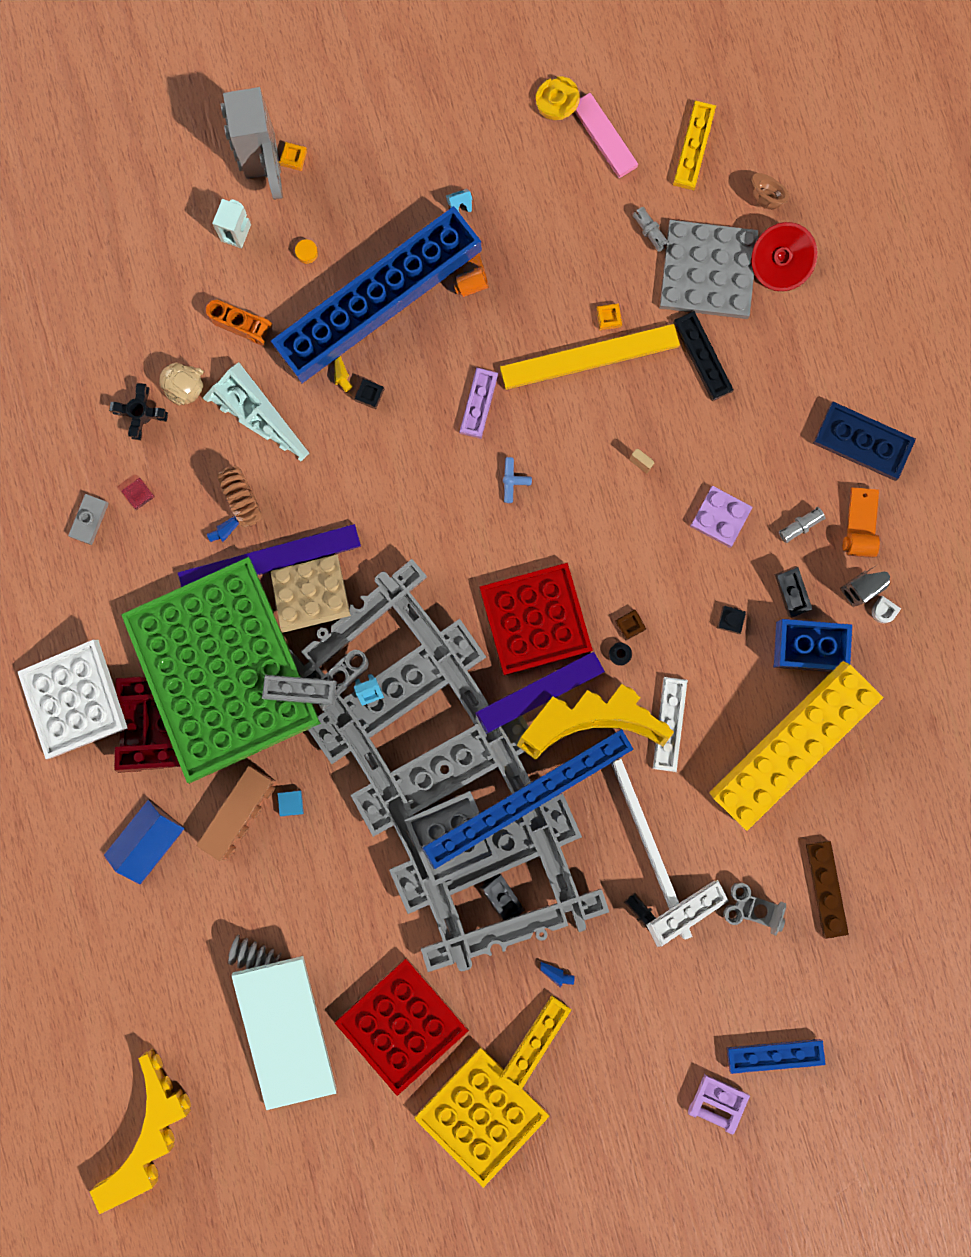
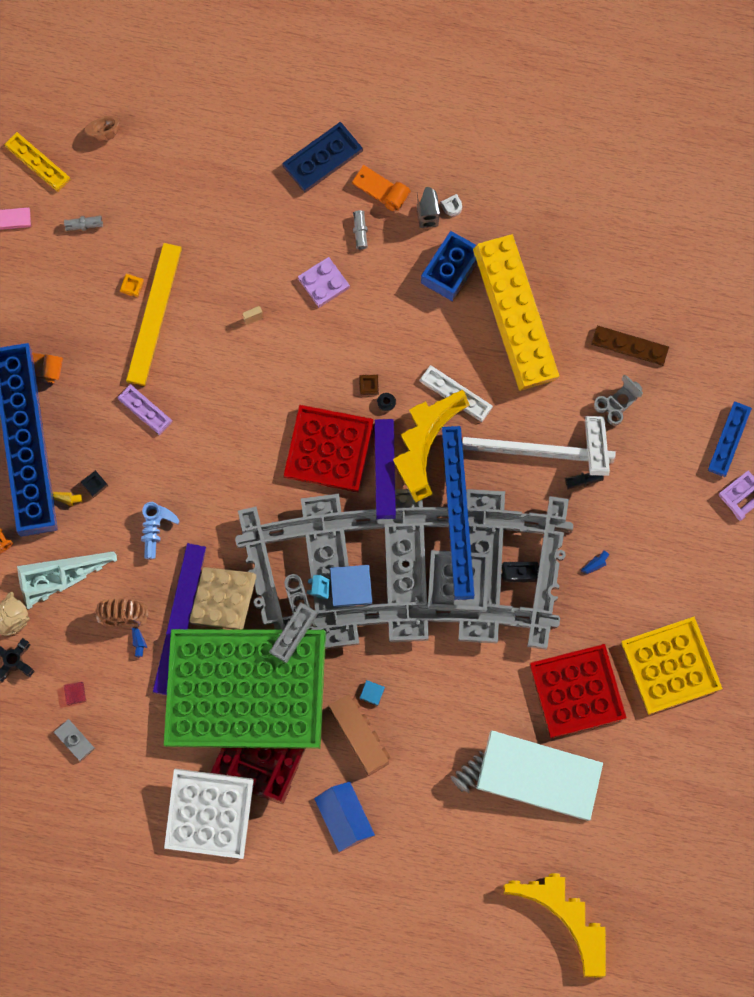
camera: 60 degrees left, 10 degrees down
(353, 477) = (151, 525): none -> light blue piece
(388, 723) = (351, 586): none -> medium blue tile
(510, 480) = (215, 415): medium blue piece -> none
(535, 1044) = (637, 601): yellow tile -> none
(703, 356) = (198, 235): black tile -> none
(708, 269) = (136, 198): light grey plate -> none
(731, 620) = (403, 313): black plate -> none
(784, 256) = (158, 142): red hat -> none
(793, 591) = (405, 259): black plate -> none

